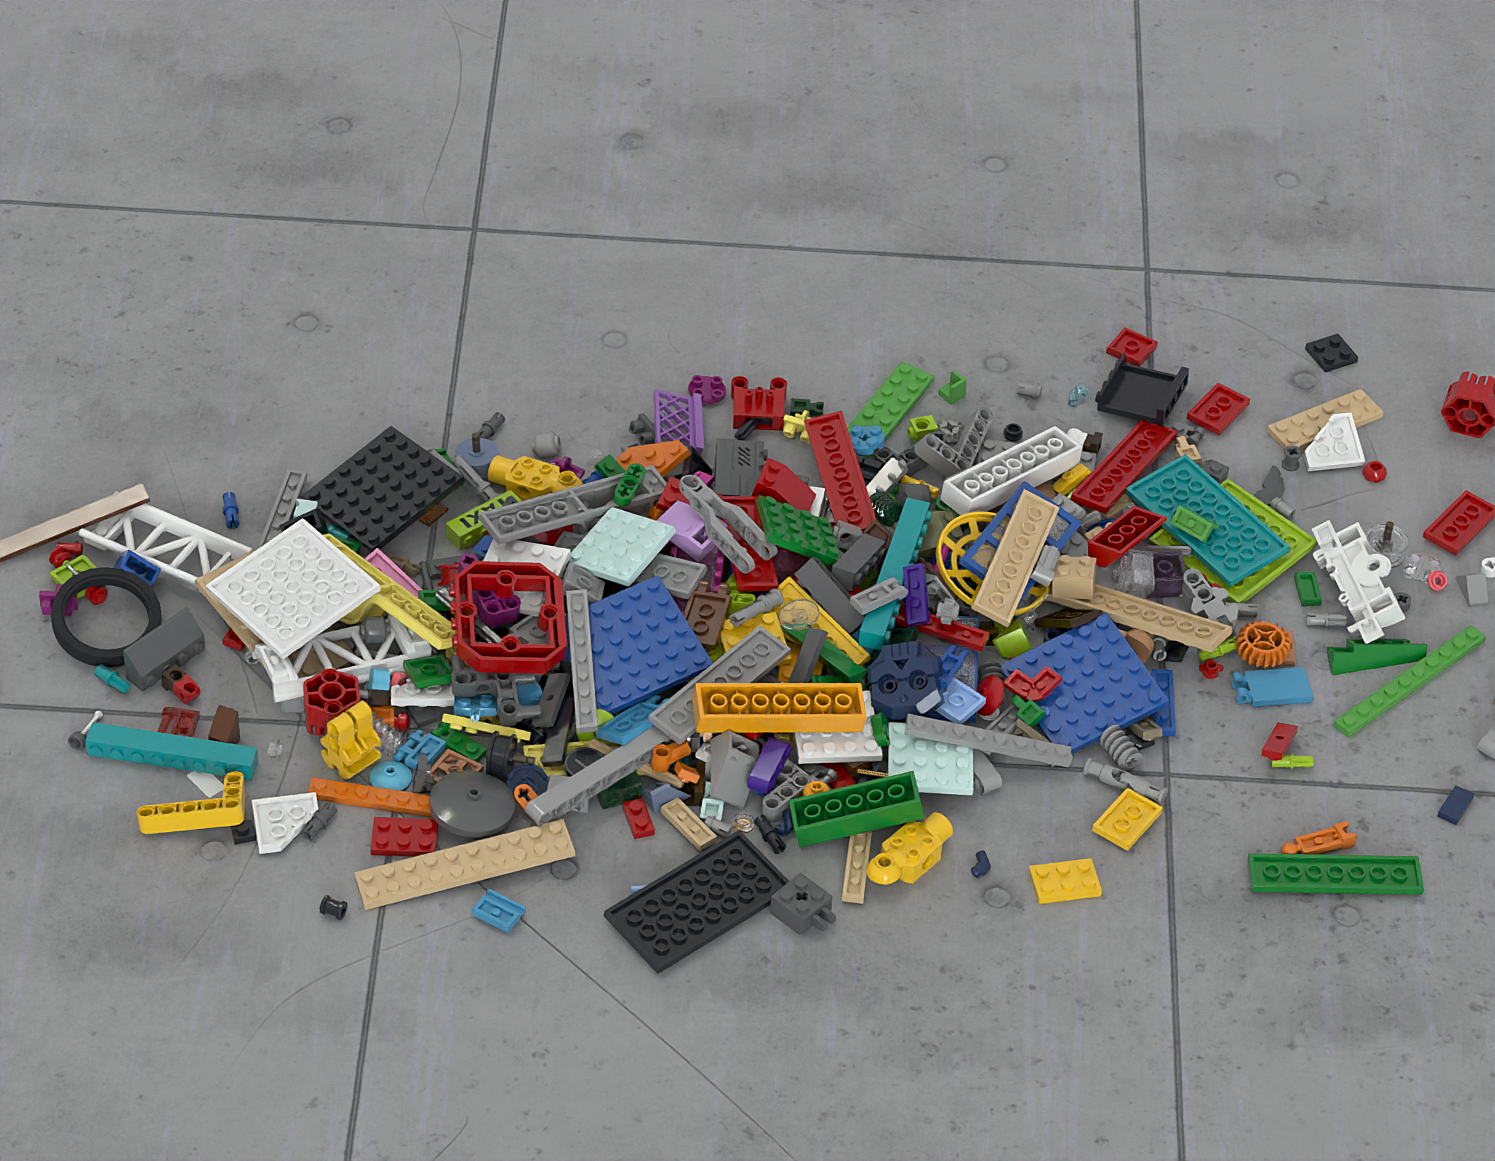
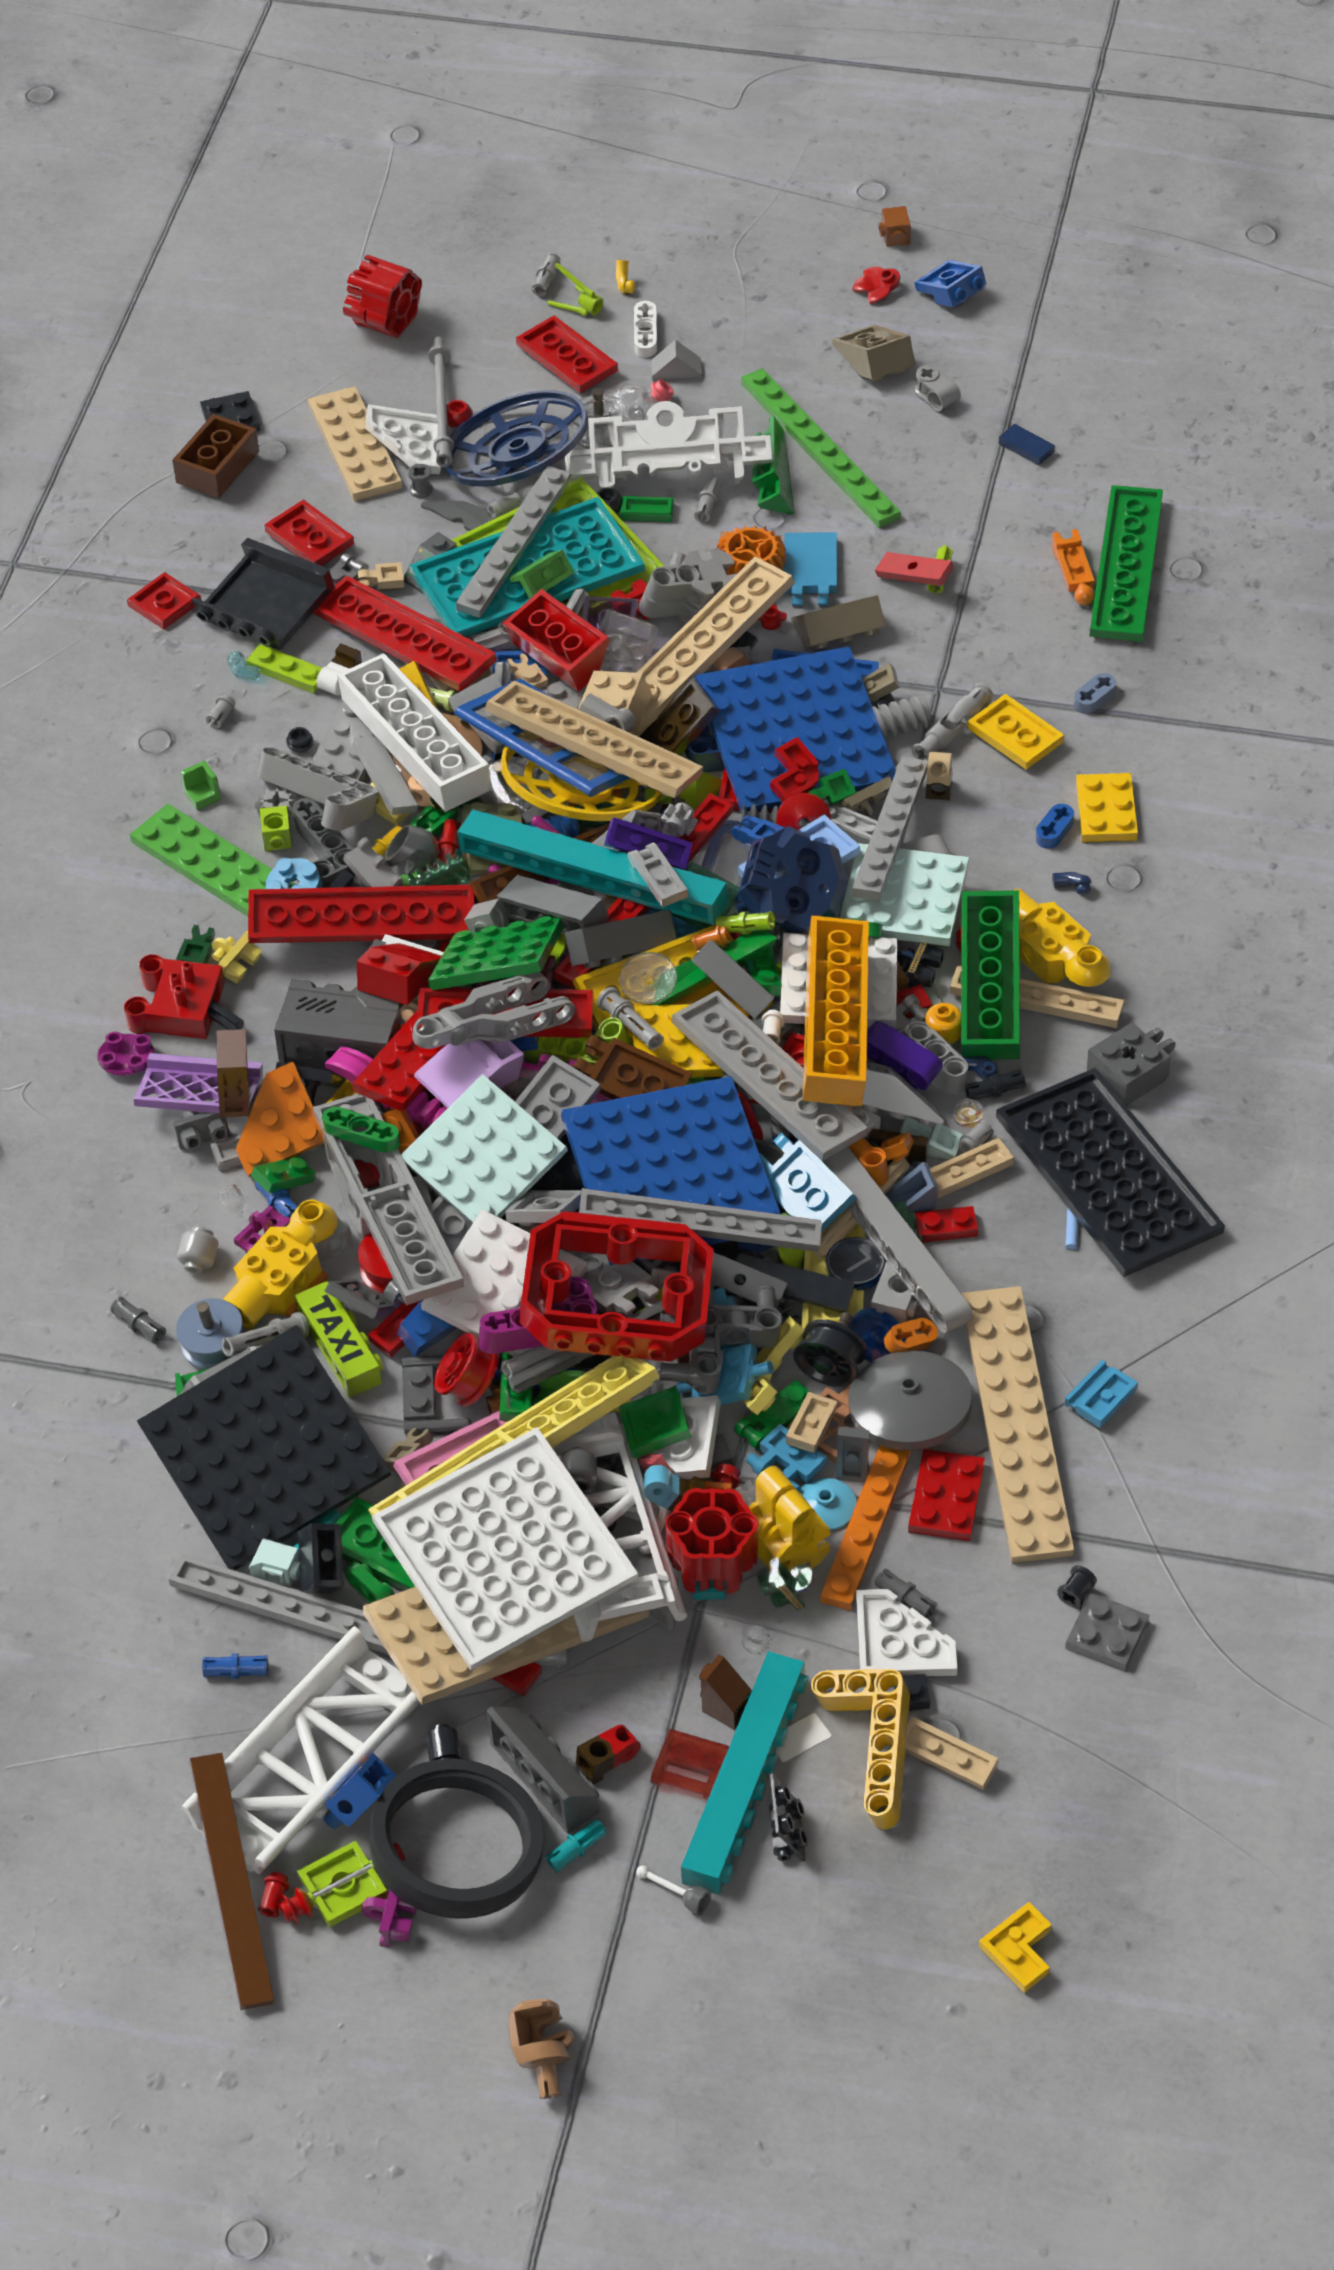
camera: 75 degrees left, 5 degrees up
(52, 893) = (1011, 1946): none -> yellow plate
(132, 769) = (786, 1822): none -> black hinge
(173, 607) = (443, 1743): none -> black brick
(194, 851) = (949, 1753): none -> tan plate
(301, 929) = (1107, 1632): none -> flat silver plate
(311, 752) = (785, 1584): none -> clear green hips
(446, 754) = (811, 1422): none -> tan plate
(658, 433) = (232, 1073): none -> reddish brown window
(845, 647) = (719, 935): none -> orange pin
(860, 659) = (747, 922): none -> lime pin
(1036, 850) = (1059, 828): none -> blue beam
(1061, 773) = (939, 773): none -> tan leg
(1083, 414) = (285, 668): none -> lime plate
(1184, 865) = (1098, 695): none -> sand blue beam
(1213, 705) = (840, 622): none -> dark tan slope
(1225, 504) = (513, 542): none -> light grey plate
(1277, 346) = (215, 455): none -> reddish brown brick
(1306, 563) = (611, 498): none -> black plate
(1326, 461) = (443, 443): none -> light grey bar
(1340, 501) = (521, 444): none -> dark blue dish

